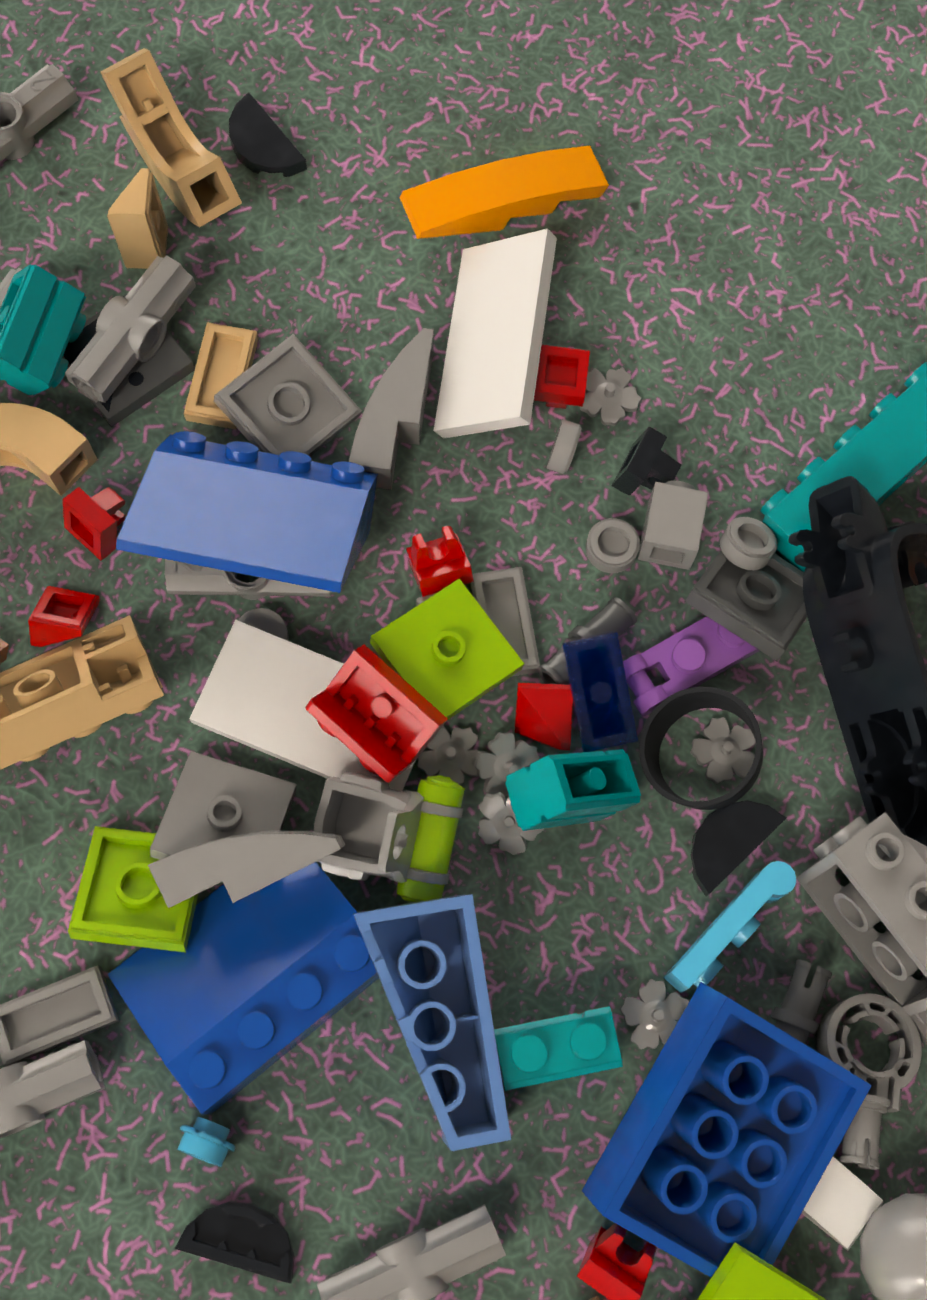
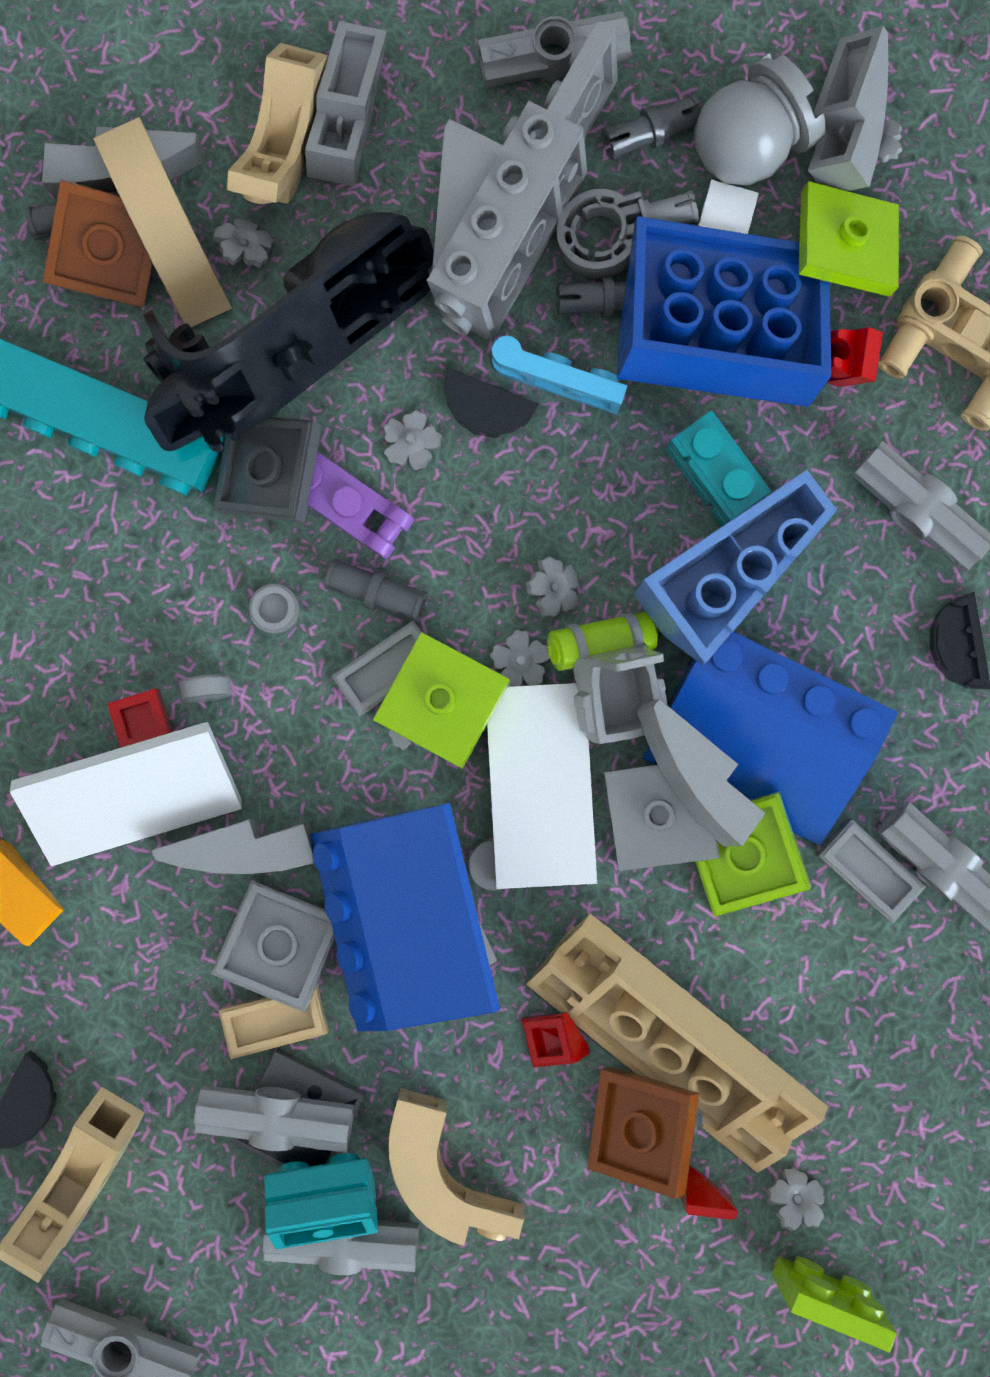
camera: 110 degrees left, 15 degrees up
(94, 519) = (461, 1056): red tile -> none
(139, 222) = (169, 1164): tan slope -> none
(206, 1141) = (908, 702): medium azure plate -> none
(376, 714) = (528, 729): red bracket -> none
(438, 562) = (362, 745): red tile -> none
(505, 759) = (507, 612): light grey plant -> none
(545, 713) = (452, 597): red slope -> none
(572, 789) = (513, 542): teal brick -> none
(600, 691) = (415, 559): clear blue slope -> none
(609, 396) = (133, 671): light grey plant -> none
(646, 464) = (190, 611): black tile -> none
(653, 1014) = (650, 407): light grey plant -> none
(668, 713) = (438, 501): black tyre -> none
(673, 524) = (236, 562): light grey brick -> none
(748, 543) = (224, 492): light grey tile -> none

